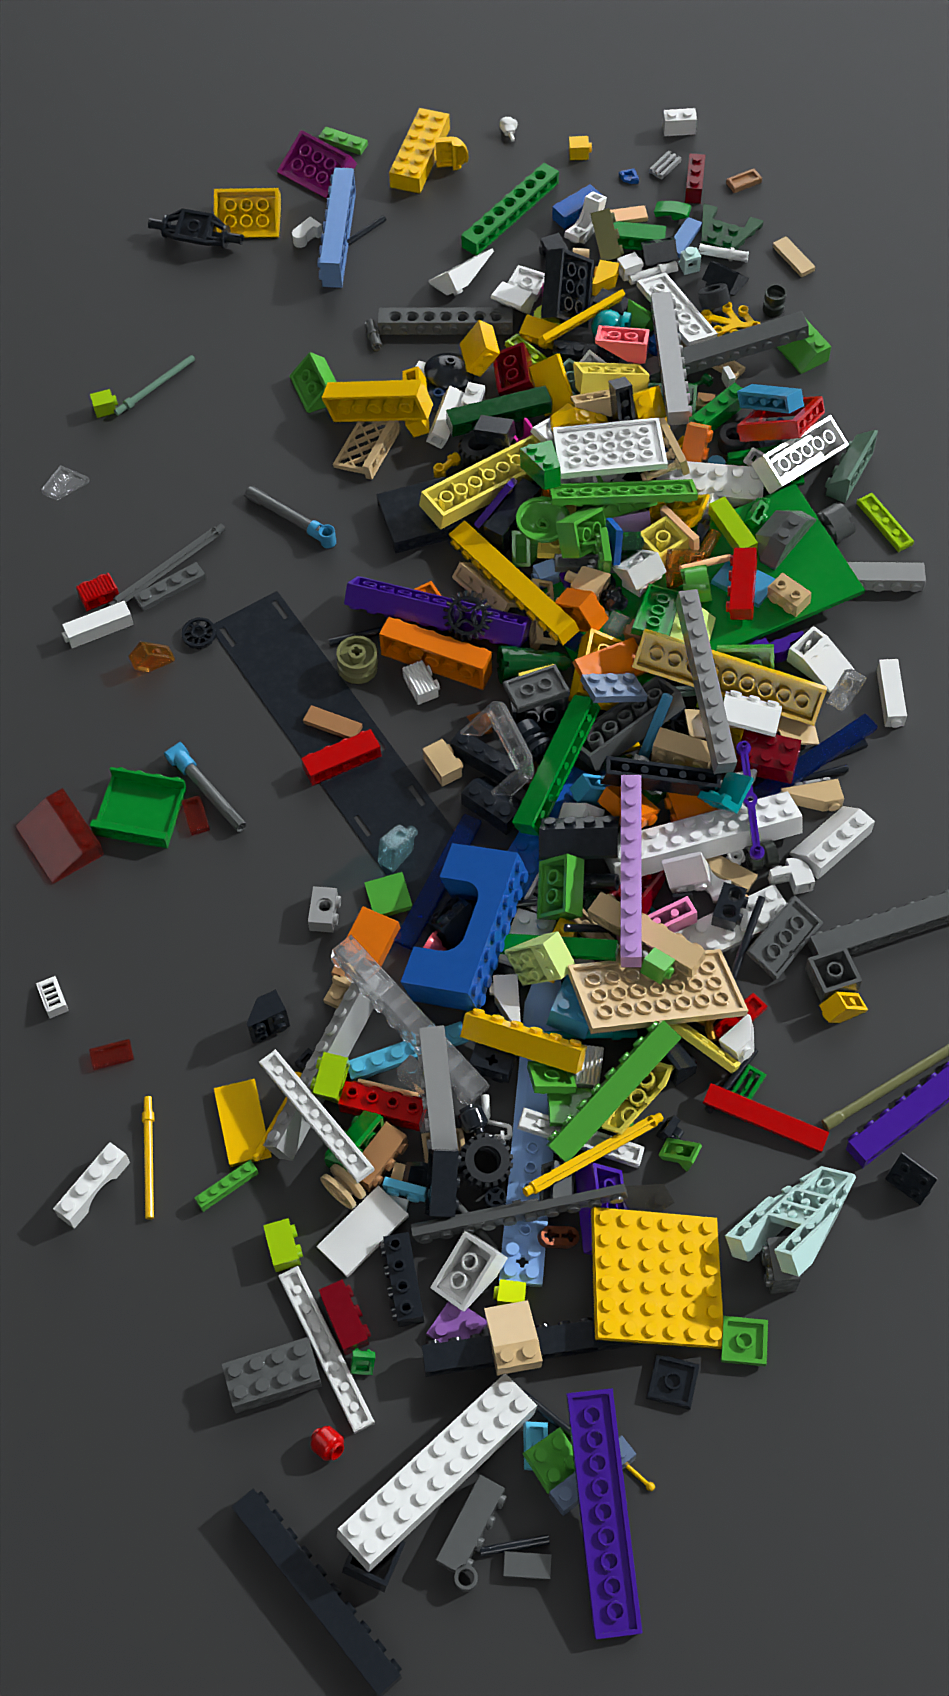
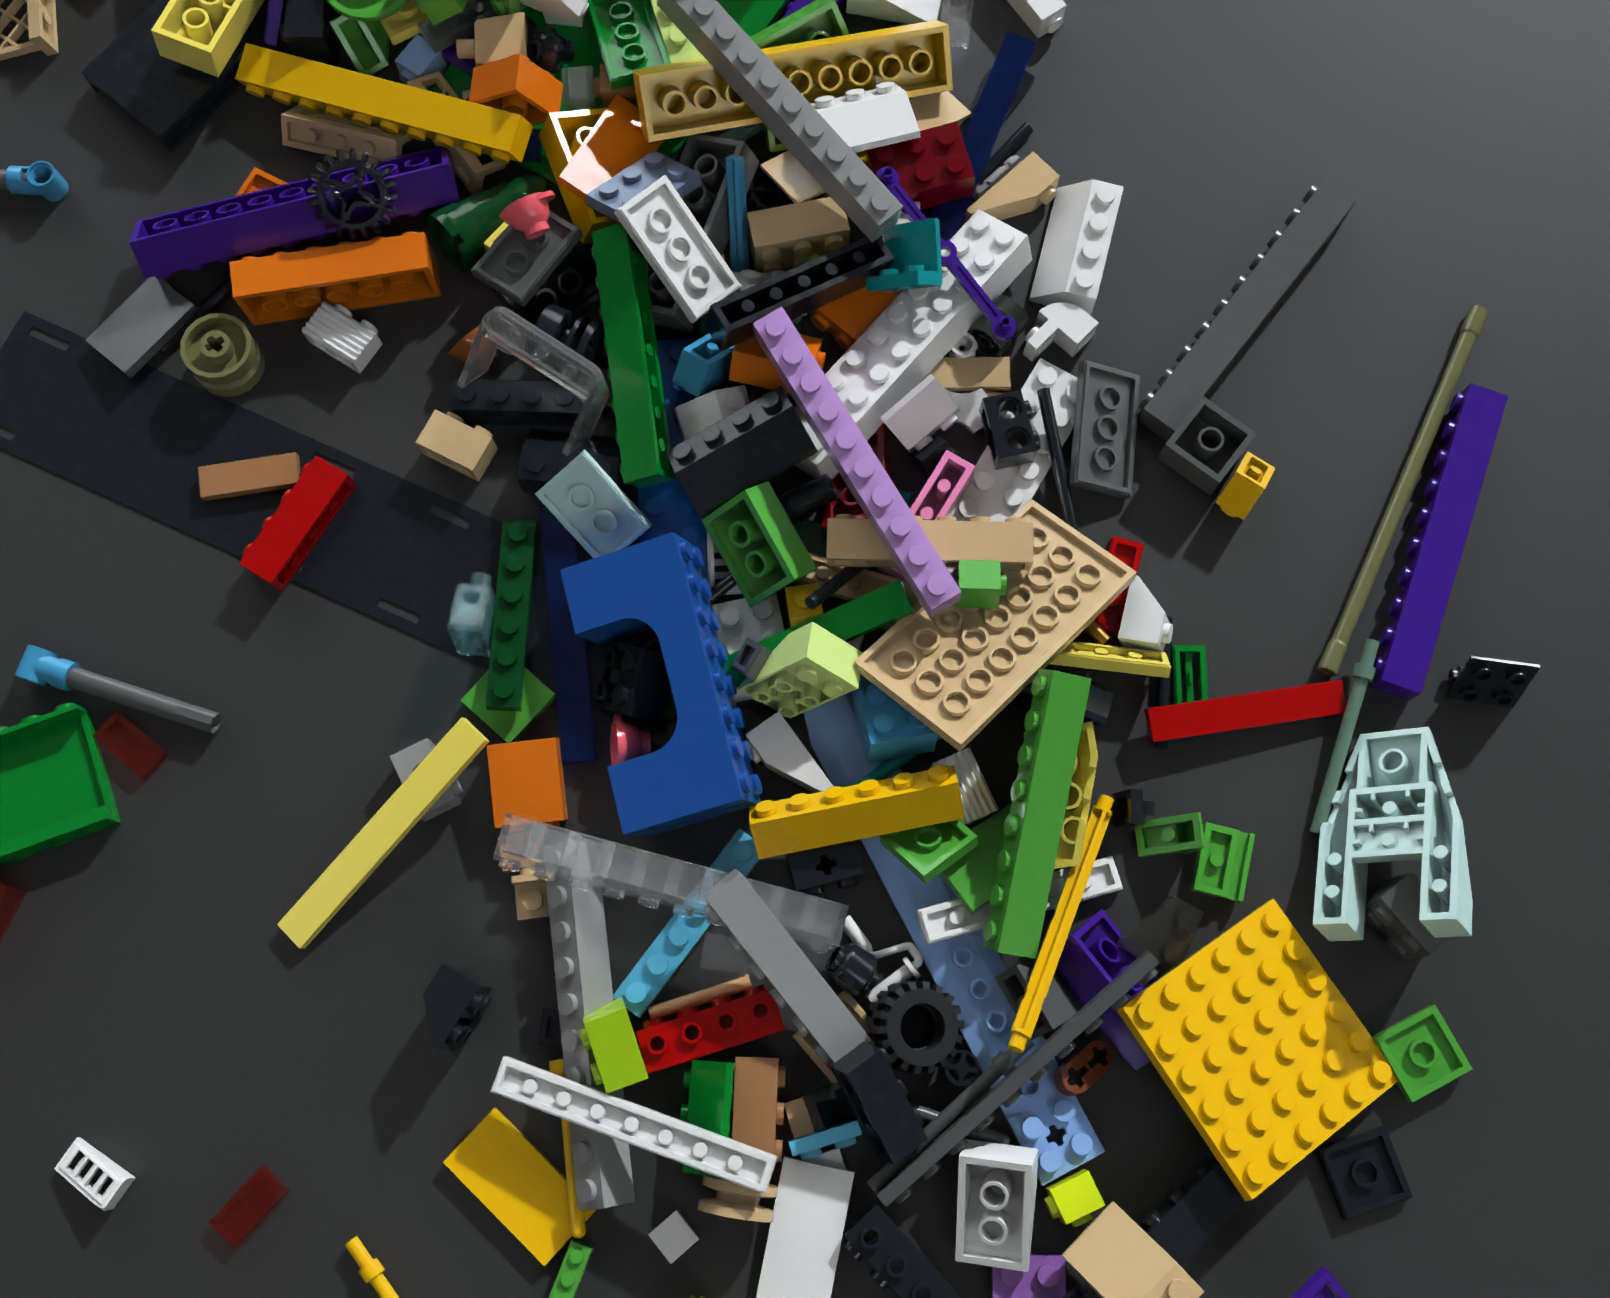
camera: 35 degrees left, 15 degrees up
(286, 919) = (383, 833): none -> light yellow tile
(300, 1191) = (673, 1236): none -> white tile
(328, 626) = (142, 325): none -> dark grey tile
(416, 856) = (511, 615): none -> dark green plate
(489, 823) = (593, 507): none -> light aqua tile
(518, 938) = (751, 658): none -> dark grey tile
(548, 669) = (529, 214): none -> coral piece
(610, 722) = (677, 248): none -> white tile
(701, 1184) = (1223, 863): none -> bright green plate
(841, 1136) = (1362, 674): none -> sand green bar

